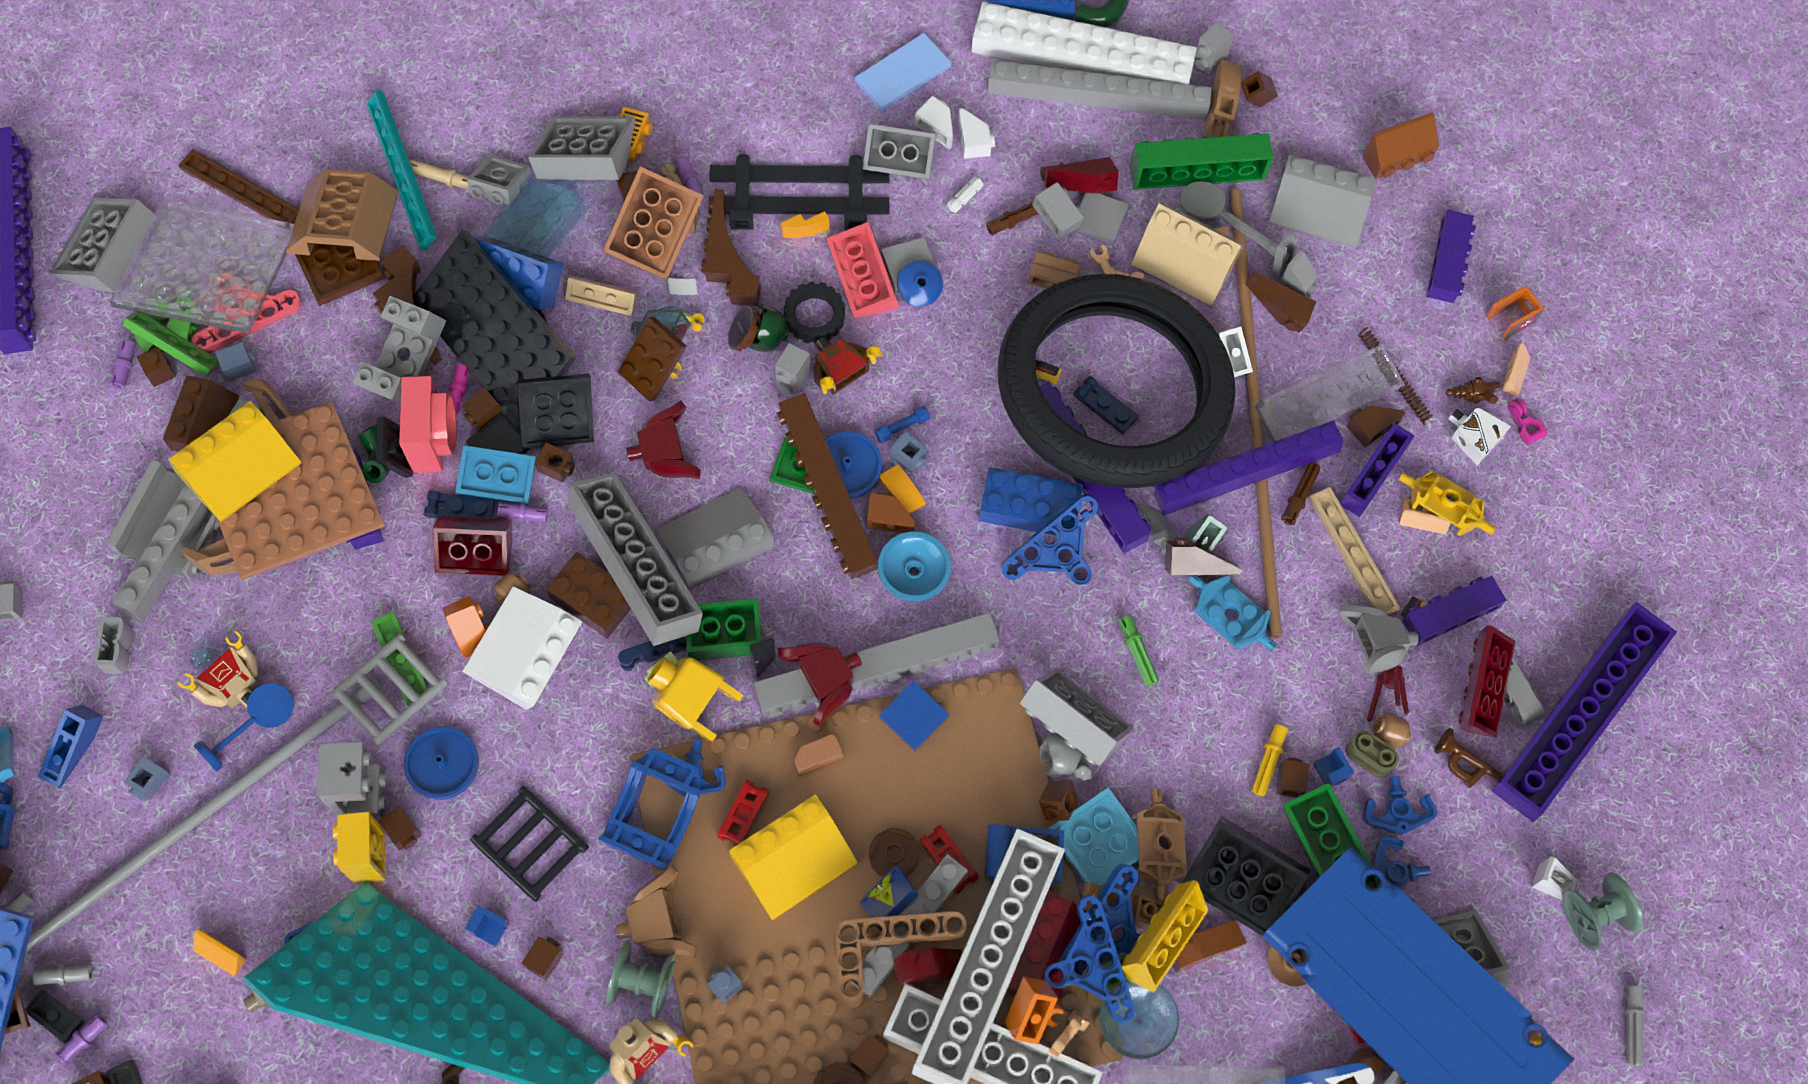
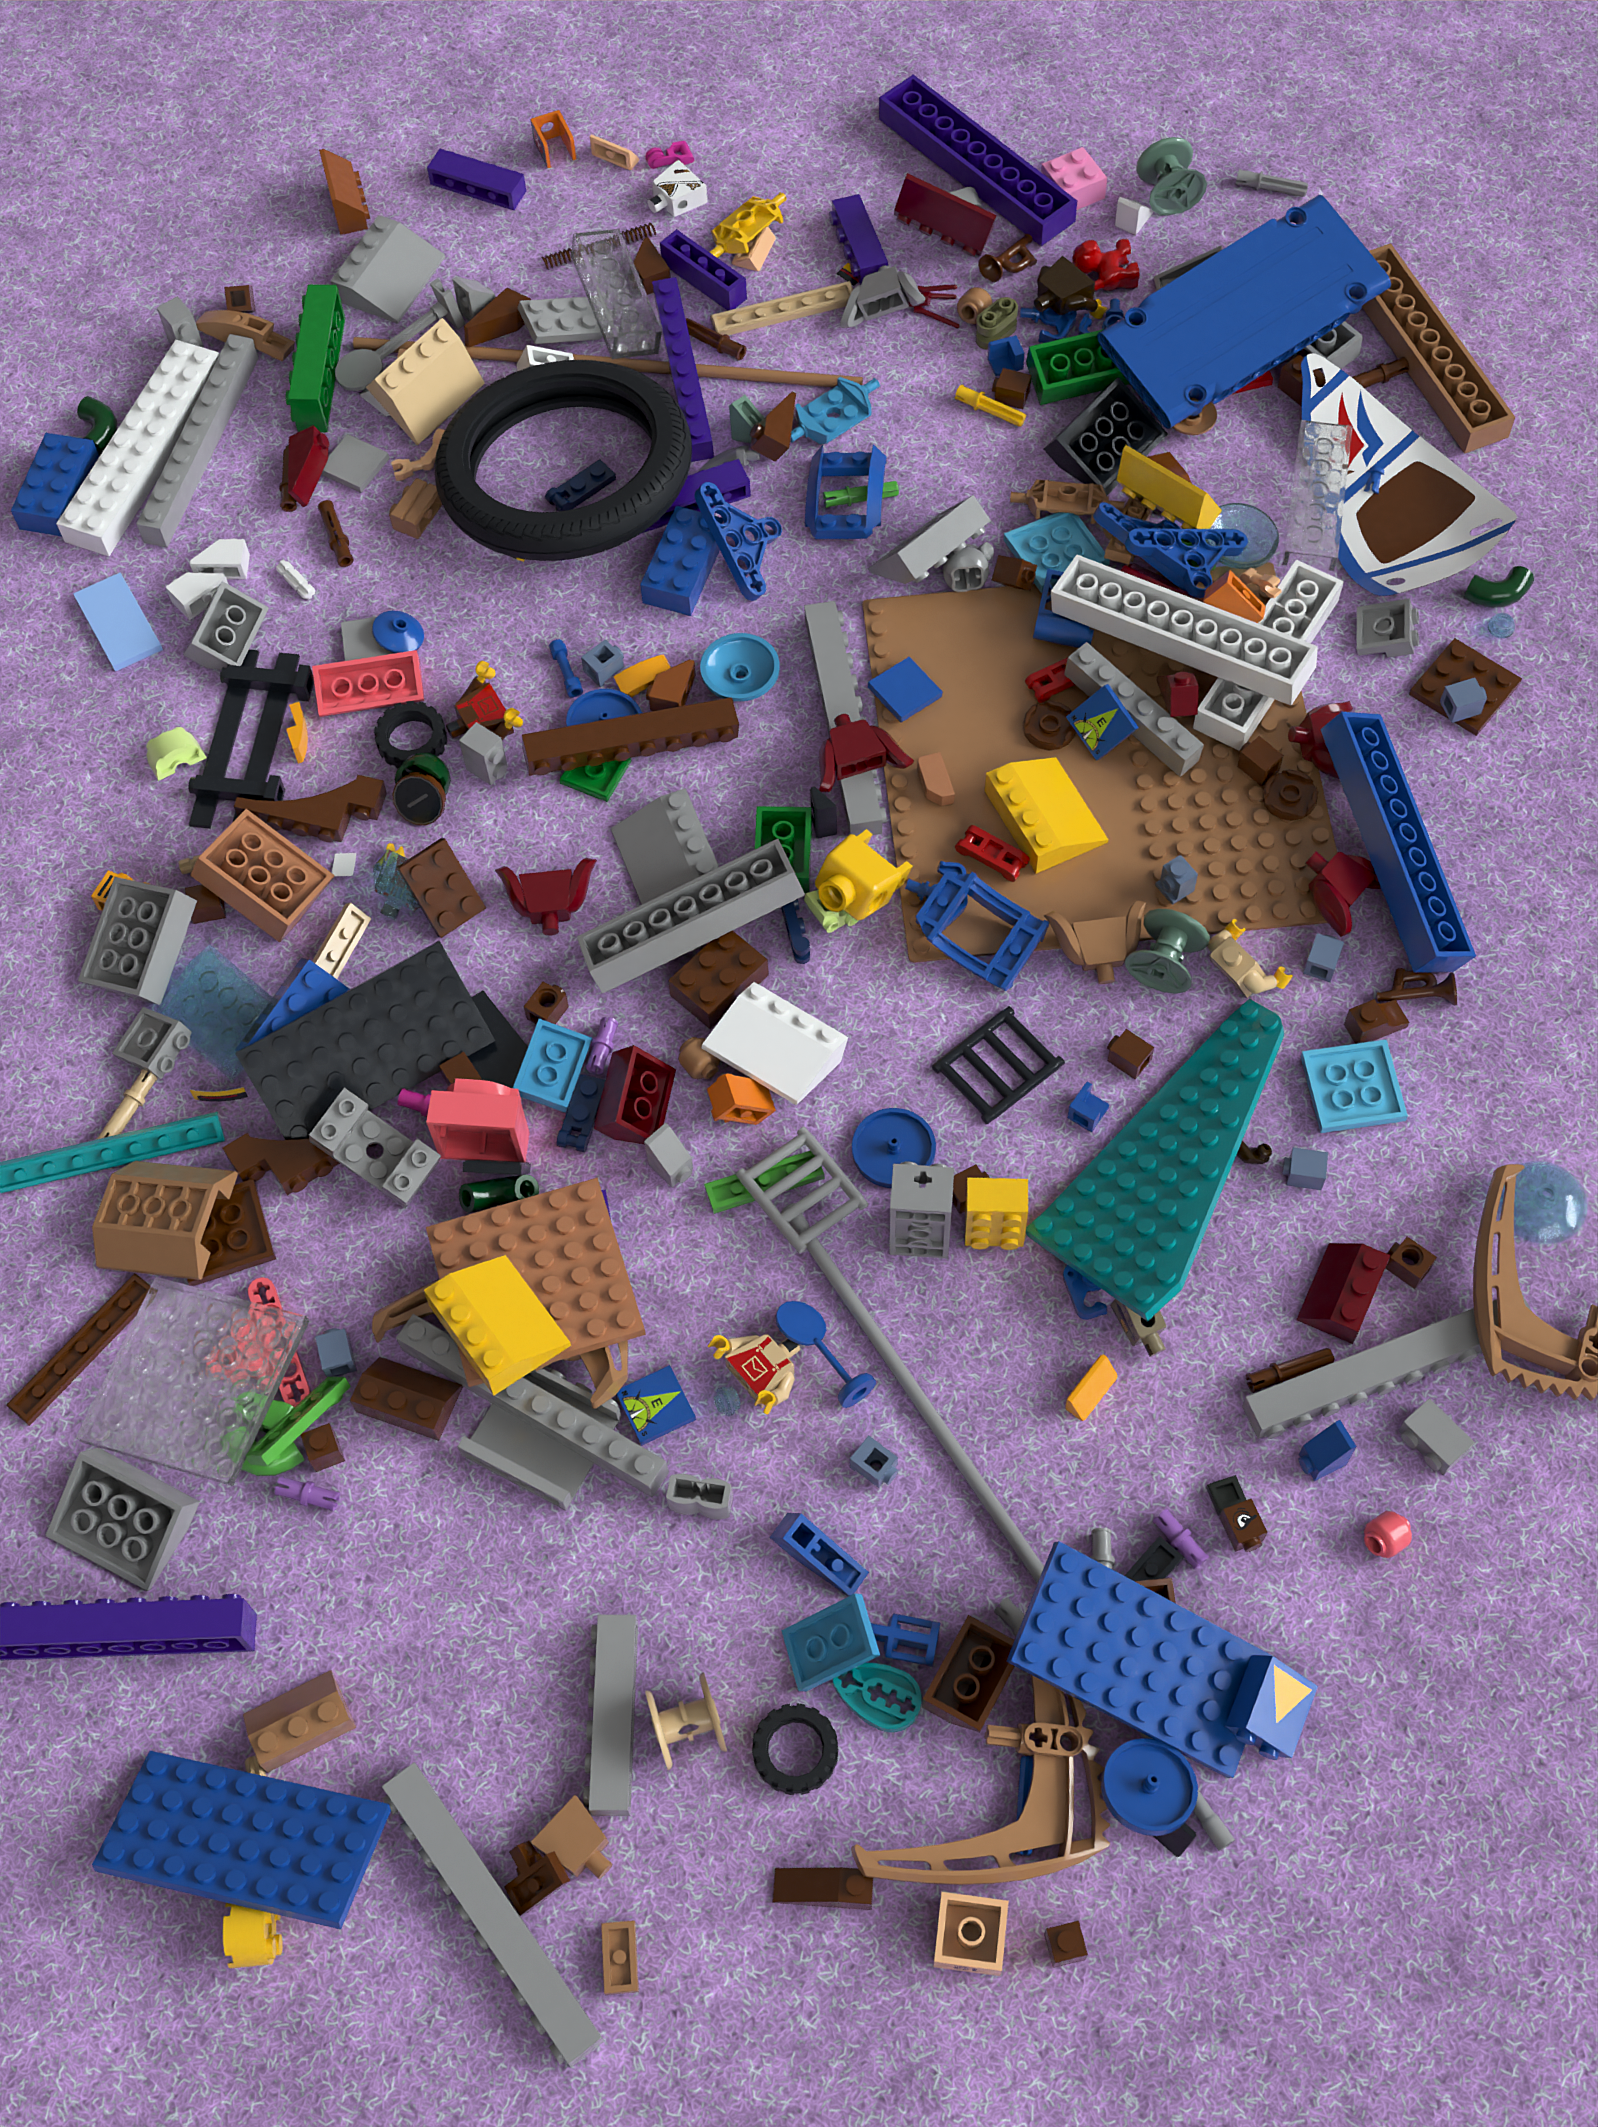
camera: 75 degrees left, 5 degrees down
(200, 604) = (655, 1405): none -> blue tile
(413, 578) = (668, 1156): none -> light grey slope
(555, 410) = (490, 985): black plate -> none
(689, 177) = (195, 844): medium lavender pin -> none
(776, 139) = (171, 750): none -> yellowish green cylinder
(888, 937) = (1149, 709): medium nougat beam -> none
(1058, 210) = (345, 489): light grey brick -> none
(1169, 632) = (845, 464): none -> blue wedge
(1288, 351) = (559, 320): none -> light grey plate
(1422, 815) = (1066, 290): none -> dark brown torso
(1475, 391) = (630, 185): reddish brown piece -> none
(1476, 839) = (1107, 264): none -> red animal
(1582, 812) = (1077, 176): none -> bright pink brick

